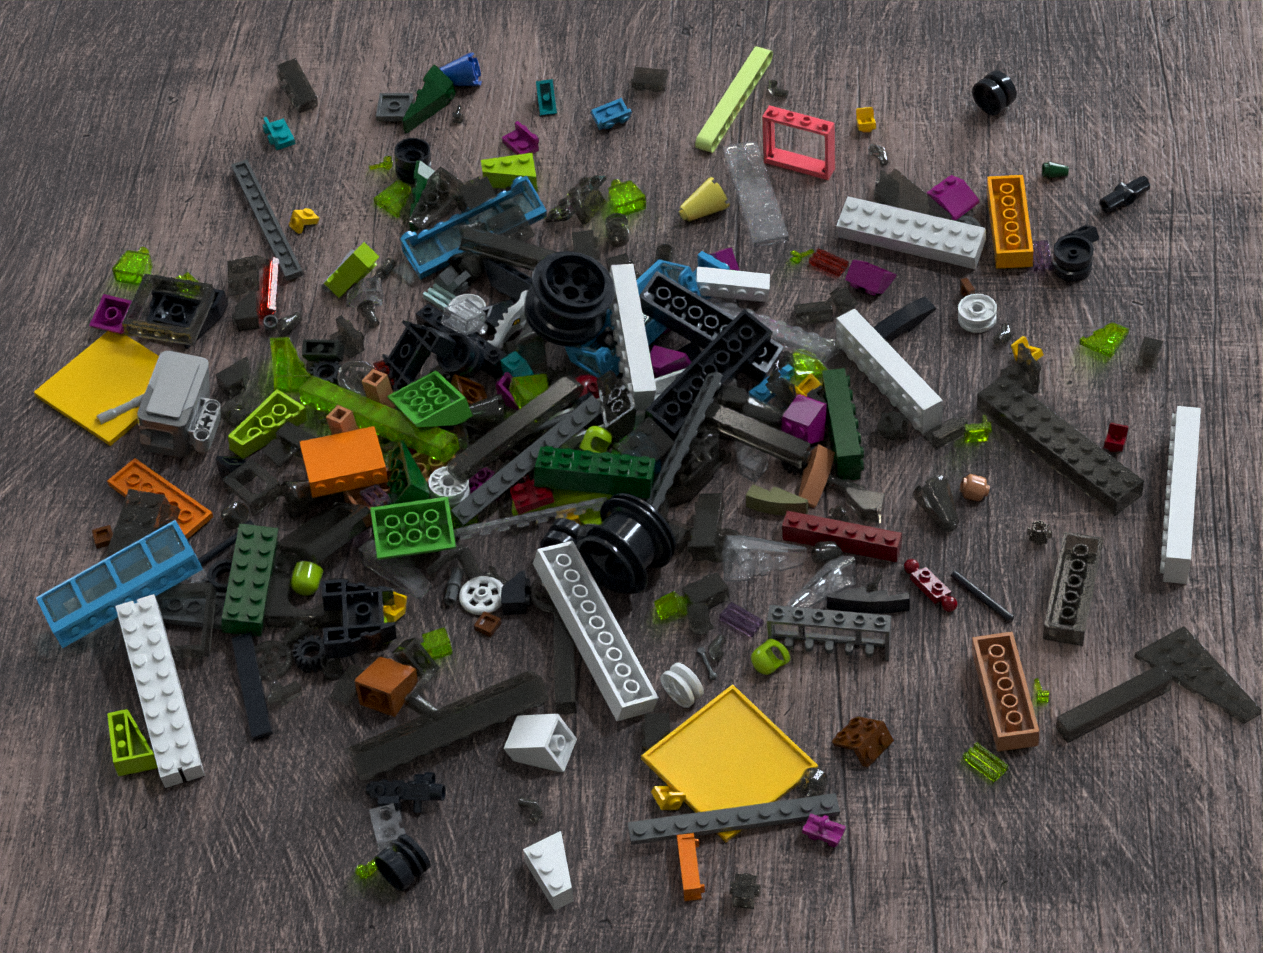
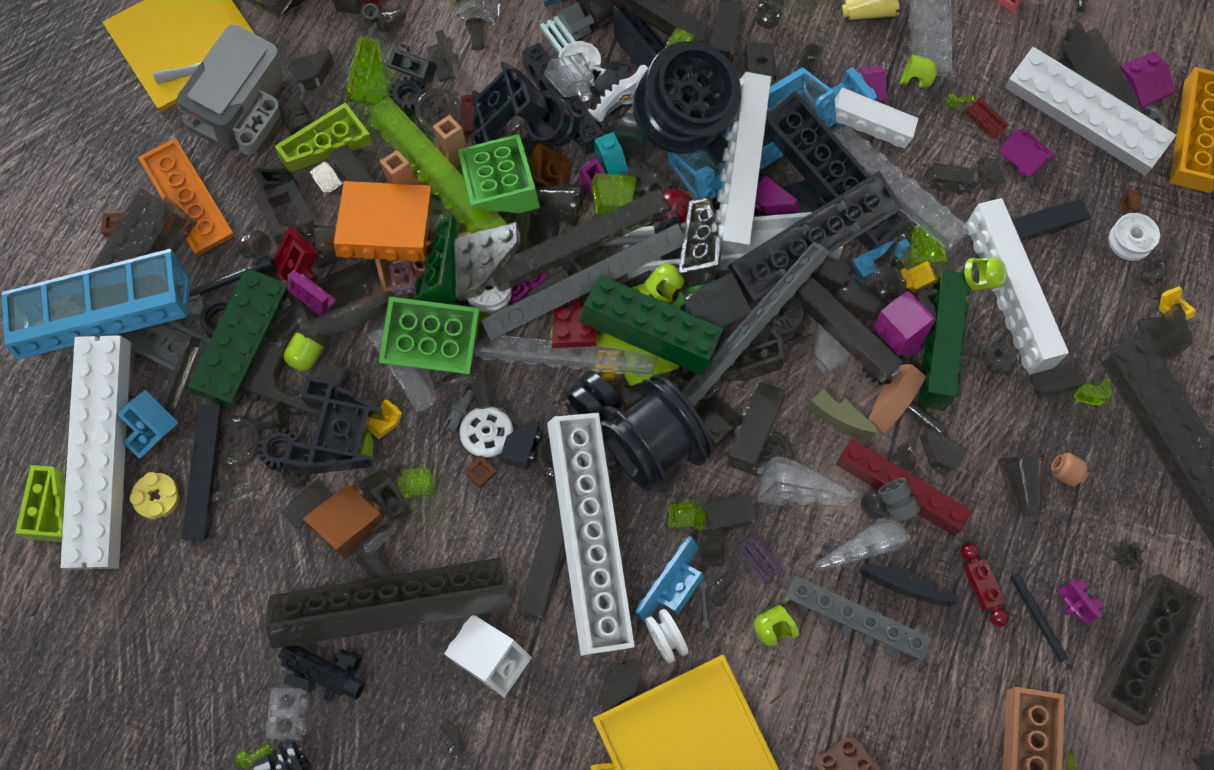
camera: 10 degrees right, 20 degrees up
(199, 656) = (148, 421): none -> dark azure brick
(216, 706) = (146, 486): none -> light yellow plate
(276, 512) = (295, 254): none -> dark red plate
(299, 526) = (309, 293): none -> magenta bracket
(438, 458) = (481, 257): none -> clear smoke plate
(676, 650) = (674, 584): none -> dark azure bracket
(761, 239) = (921, 68): none -> lime helmet
(838, 537) = (899, 501): none -> dark grey wheel
(861, 360) = (991, 273): none -> lime helmet
(1010, 575) = (1079, 603): none -> magenta hips

